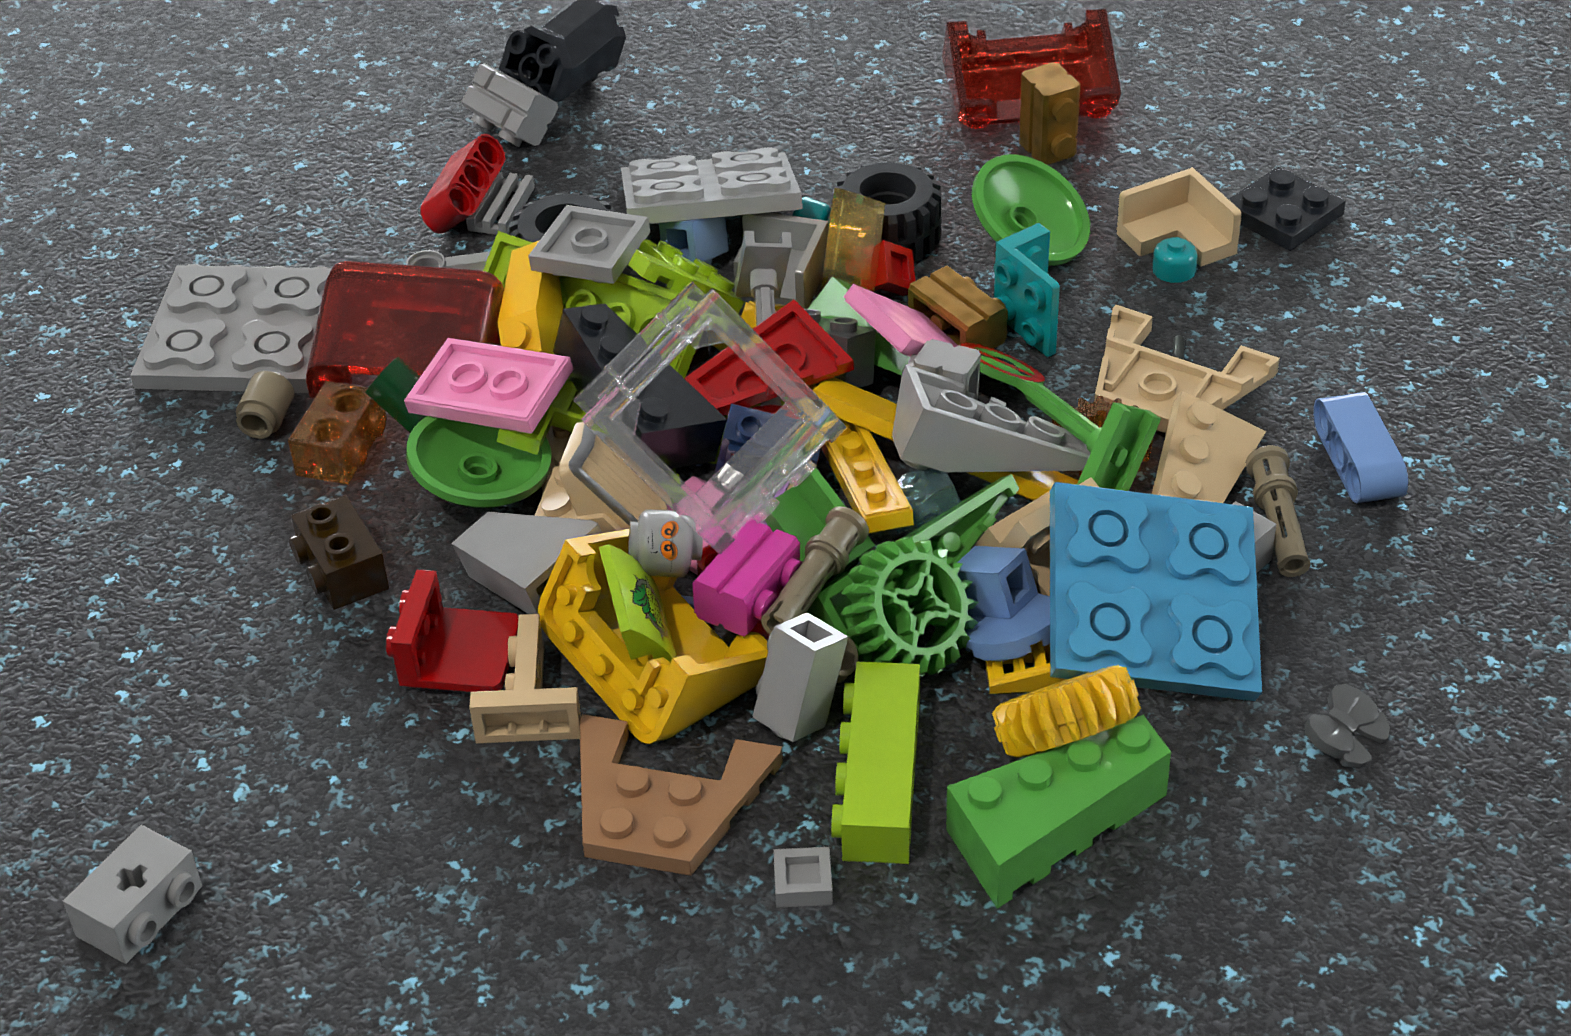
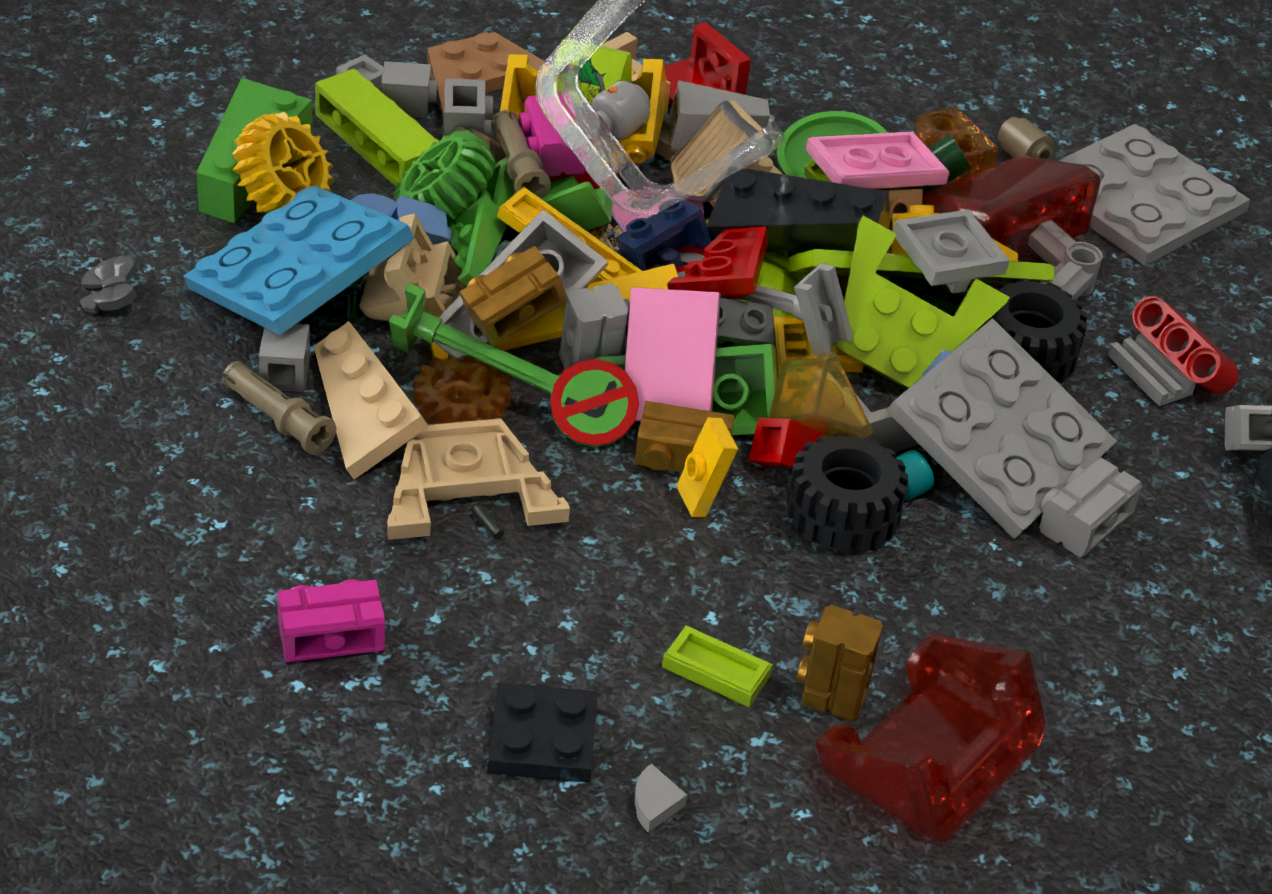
camera: 130 degrees right, 0 degrees up
(338, 552) = (834, 86): dark brown brick -> none
(716, 130) = (1089, 506): none -> light grey brick
(790, 800) = (409, 87): none -> light grey brick
(979, 249) = (706, 467): none -> yellow plate
(1022, 191) = (732, 546): bright green dish -> none
(1022, 386) = (513, 295): none -> pearl gold brick
(1027, 288) = (634, 452): teal bracket -> none
(1104, 182) = (717, 666): none -> lime tile
(1174, 260) = (578, 606): teal piece -> none
(1183, 208) = (613, 656): tan panel -> none
(1245, 142) = (656, 798): none -> light grey tile
(1360, 447) = (259, 486): medium blue beam -> none
(1386, 321) = (331, 620): none -> dark pink brick

